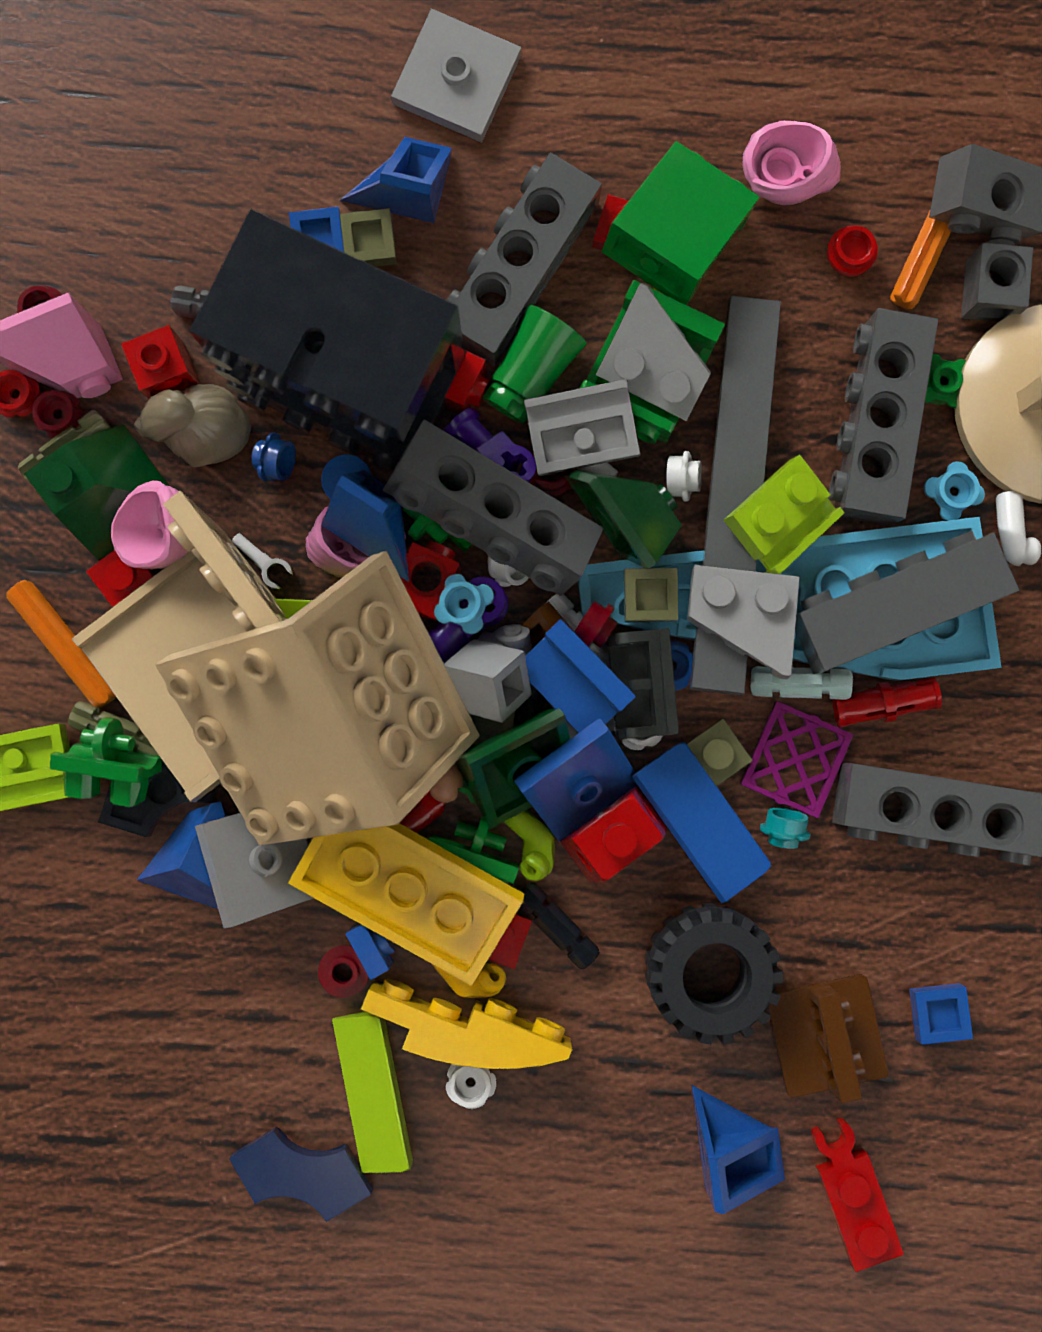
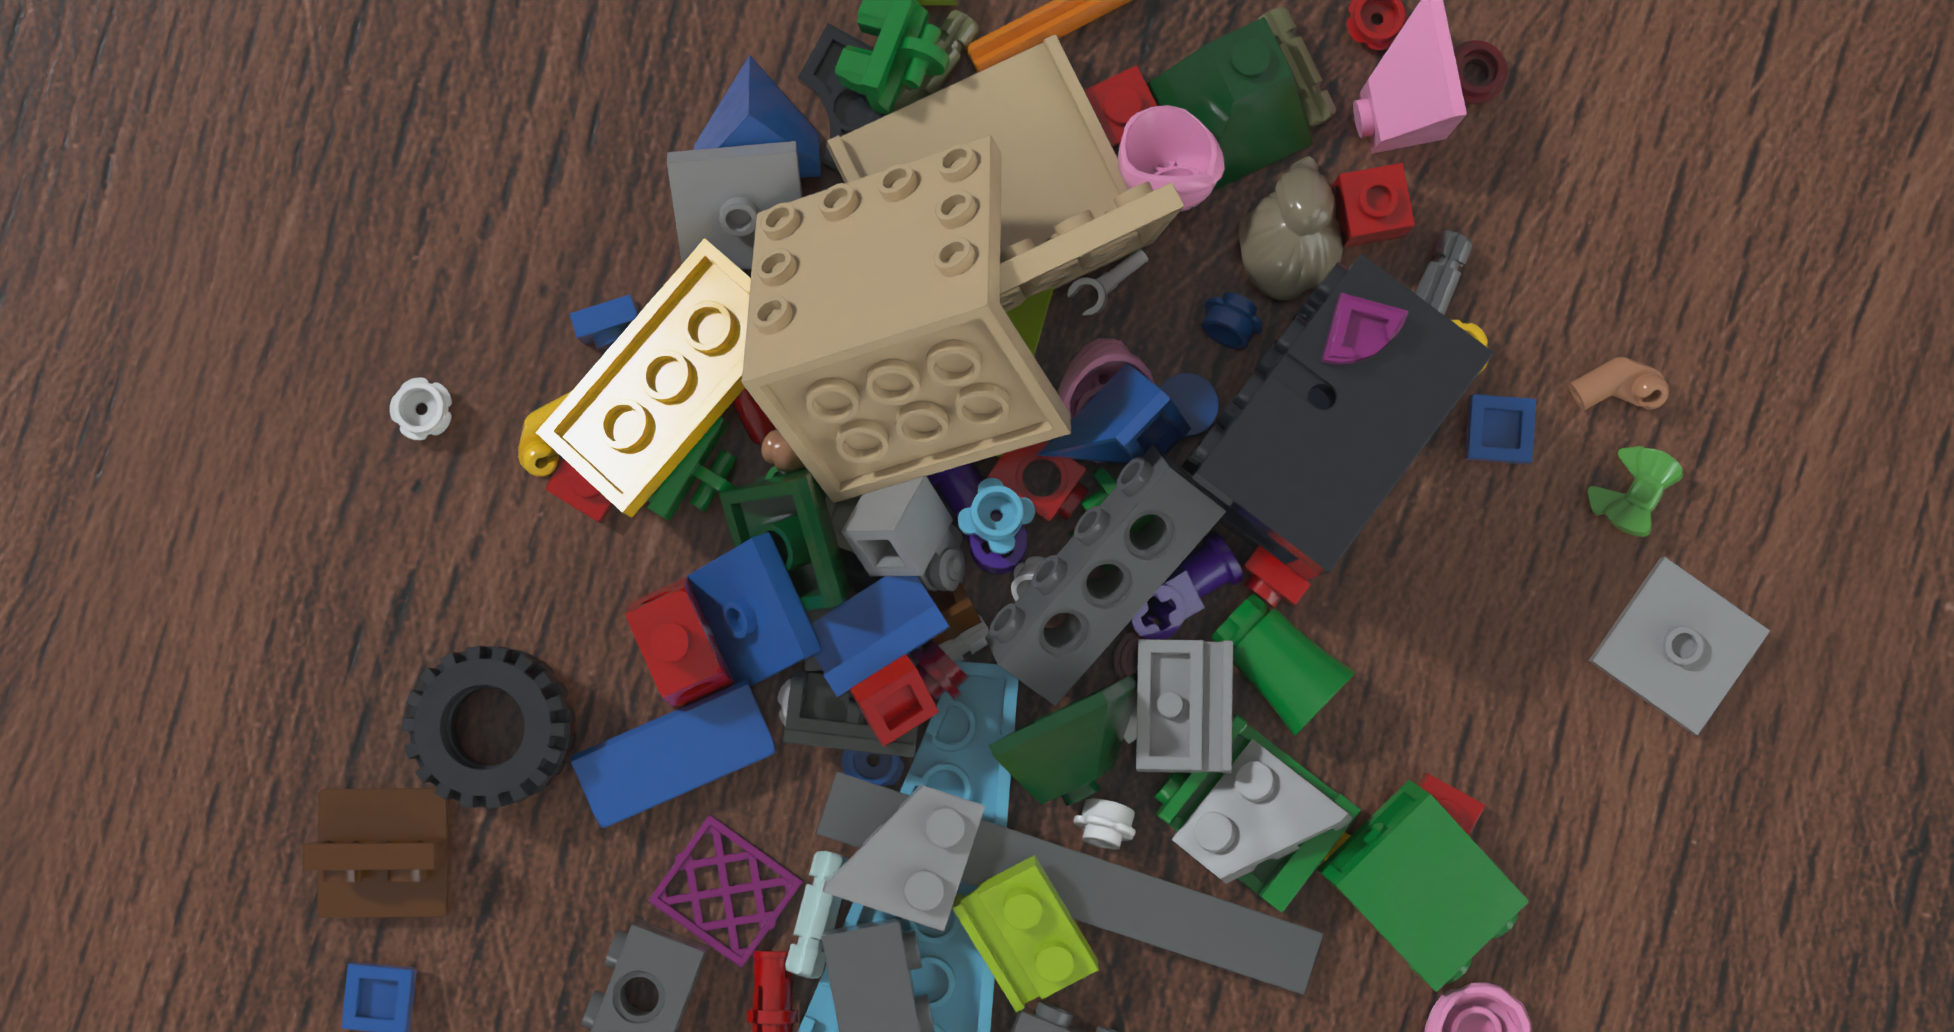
camera: 105 degrees right, 0 degrees up
(50, 402) = (1356, 59): dark red plate -> none
(251, 317) = (1360, 329): none -> magenta tile
(261, 154) = (1624, 380): none -> nougat arm
(279, 1167) = (370, 161): dark blue tile -> none
(327, 976) = (581, 262): dark red plate -> none
(329, 118) = (1652, 474): none -> bright green piece
(369, 236) = (1485, 492): olive plate -> none
(373, 1093) = (435, 289): lime slope -> none
(407, 181) = (1555, 555): blue slope -> none
(486, 1040) = (468, 439): yellow slope -> none
(538, 845) = (686, 547): lime arm -> none
(552, 188) = (1507, 729): dark grey brick -> none
(558, 926) = (584, 552): black axle -> none
(628, 650) = (894, 700): none -> red plate
(651, 595) = (960, 747): olive plate -> none
(719, 751) = (754, 794): olive plate -> none
(736, 1153) = (269, 712): blue slope -> none
(785, 827) = (644, 857): teal plate -> none
(856, 1200) = (178, 845): red plate -> none

